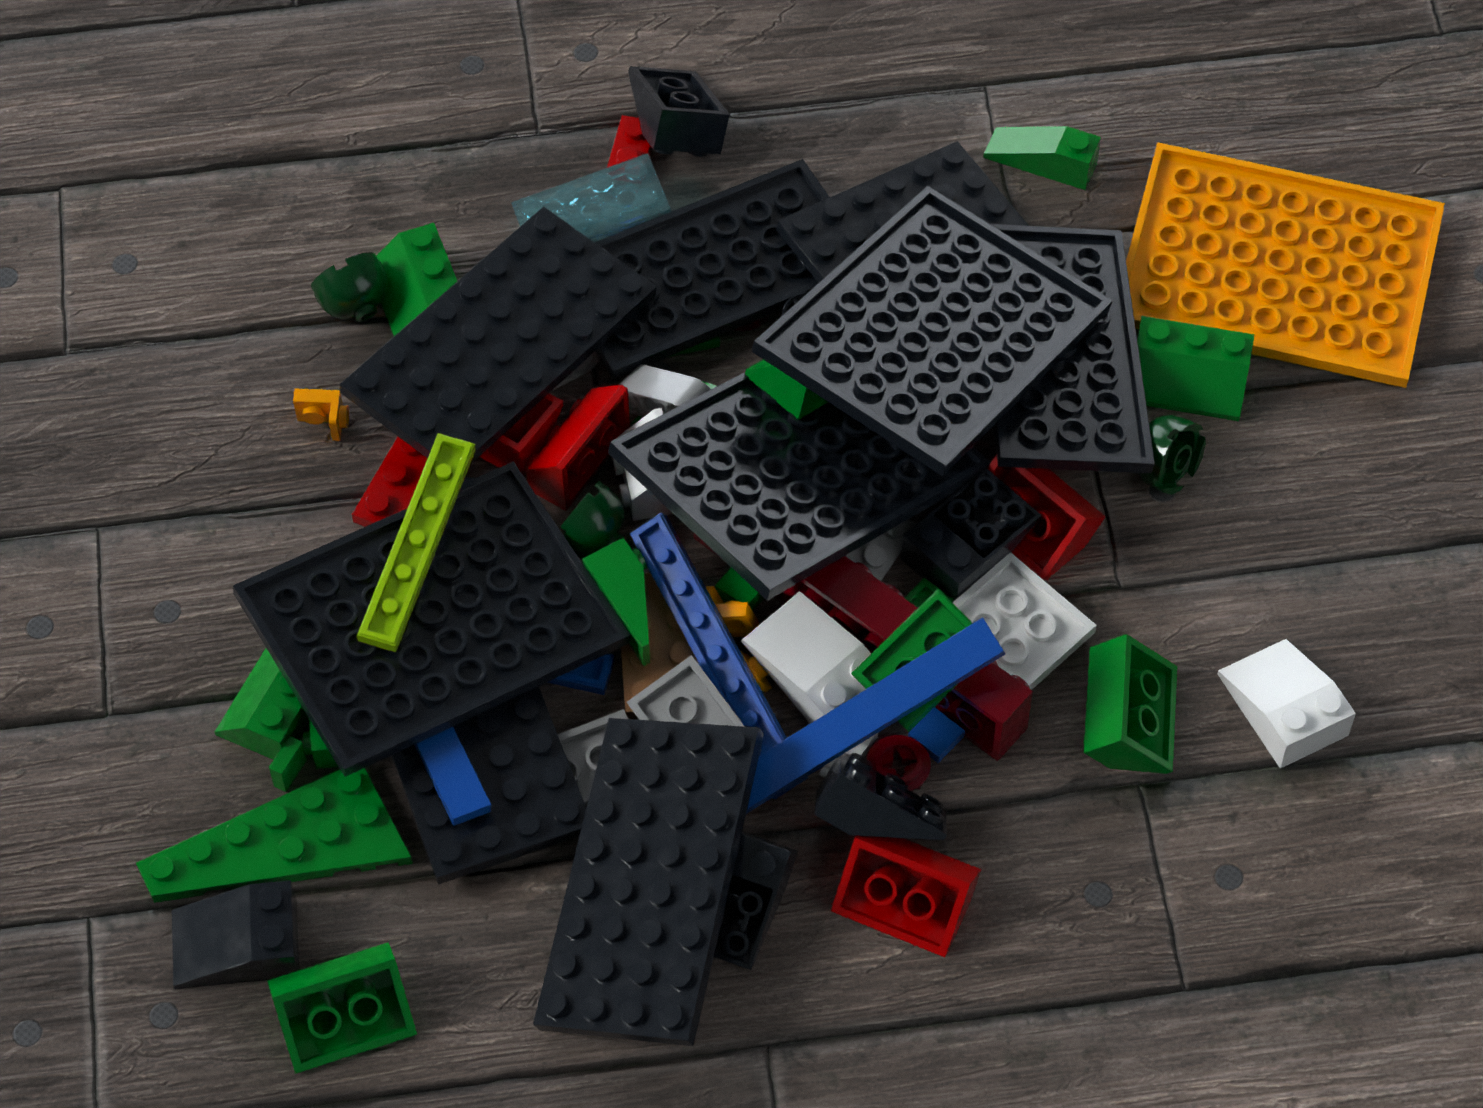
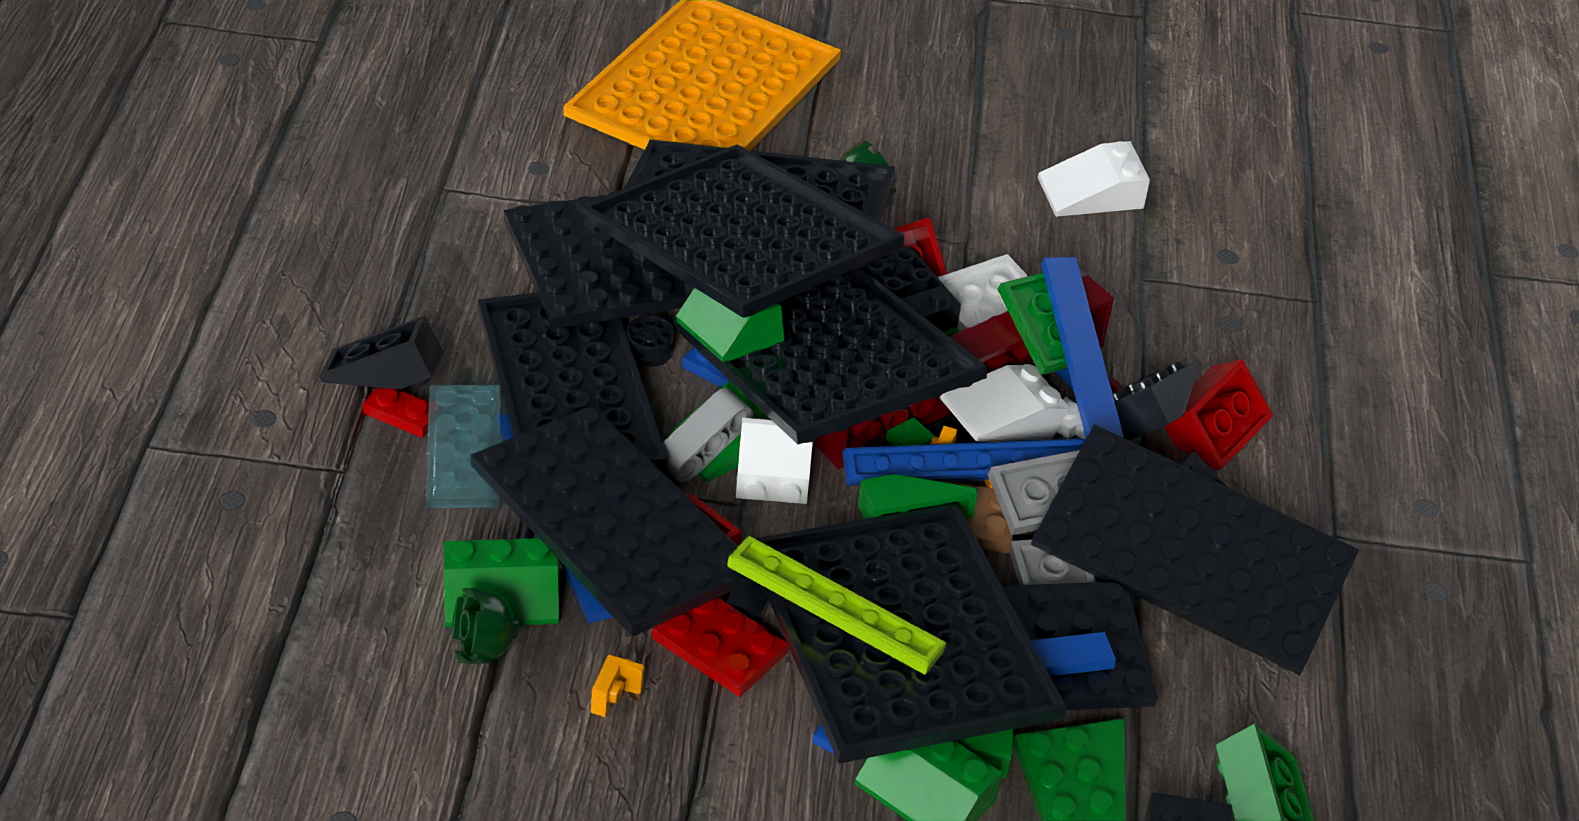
camera: 80 degrees left, 15 degrees down
(287, 763) = (1013, 788): green tile -> none
(579, 445) = (734, 490): red slope -> none
(594, 522) = (812, 506): dark green cylinder -> none
(1047, 151) = (541, 164): green slope -> none
(1130, 707) = (1102, 261): green slope -> none
(1194, 367) = (792, 131): green slope -> none

